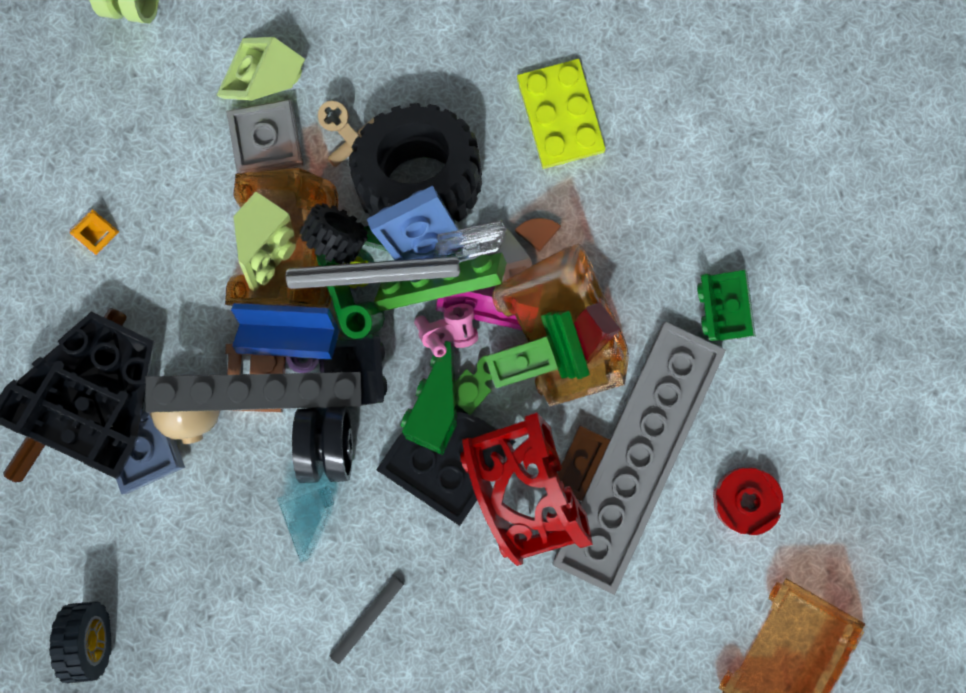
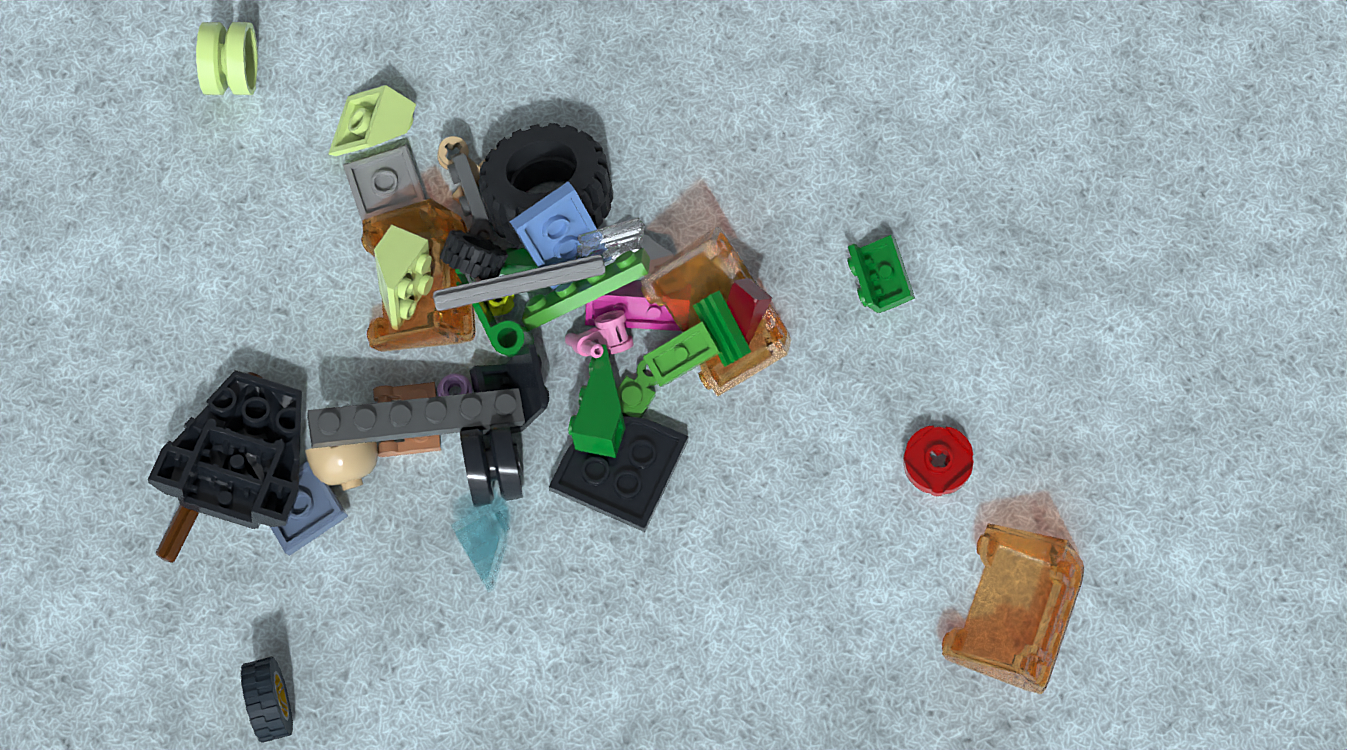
camera: 10 degrees left, 15 degrees down
(91, 229) = (217, 299): light orange slope -> none
(285, 331) = (435, 358): blue panel -> none
(336, 141) = (471, 201): none -> dark grey hinge
(366, 620) = (561, 643): dark grey bar -> none
(537, 232) = (677, 234): medium nougat tile -> none
(560, 113) = (681, 120): neon yellow plate -> none
(560, 529) = (753, 489): red fence -> none
(582, 460) = (759, 449): reddish brown plate -> none
(641, 454) = (817, 436): light grey plate -> none

